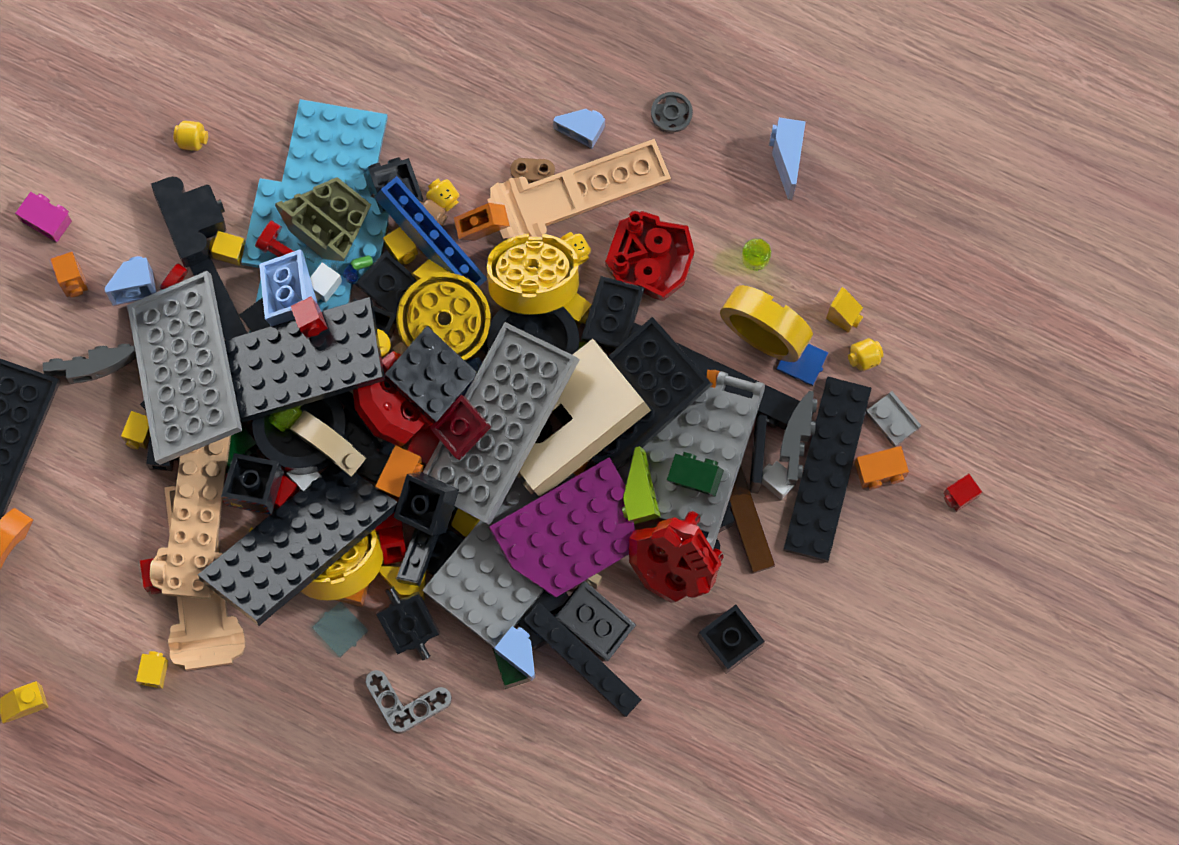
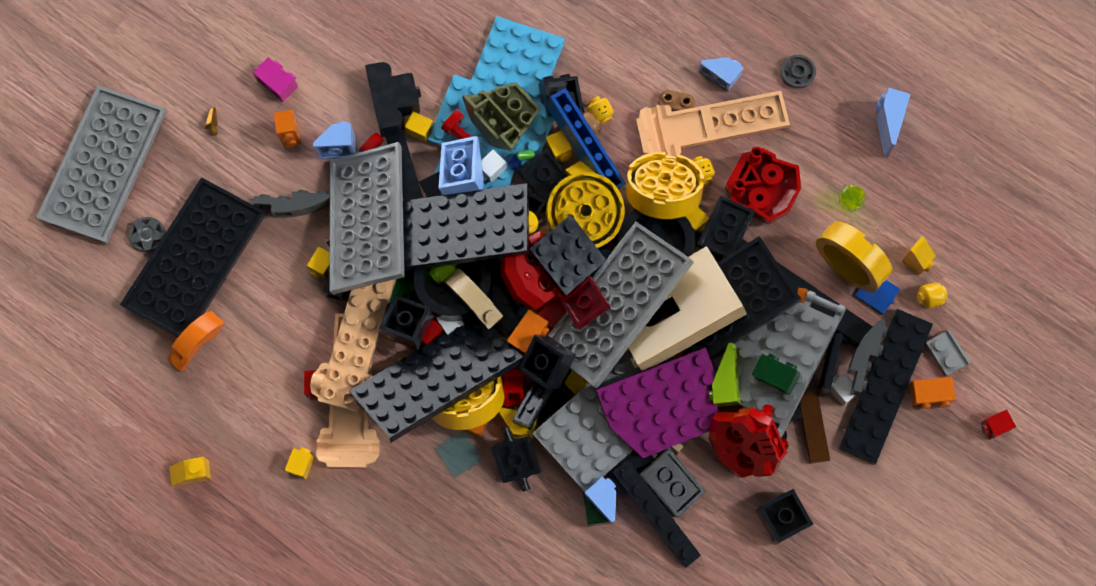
camera: 15 degrees right, 0 degrees up
(190, 135) = (403, 32): yellow head -> none
(309, 317) = (474, 192): brick -> none
(398, 709) = (496, 529): light grey beam -> none
(481, 221) = (628, 136): orange brick -> none

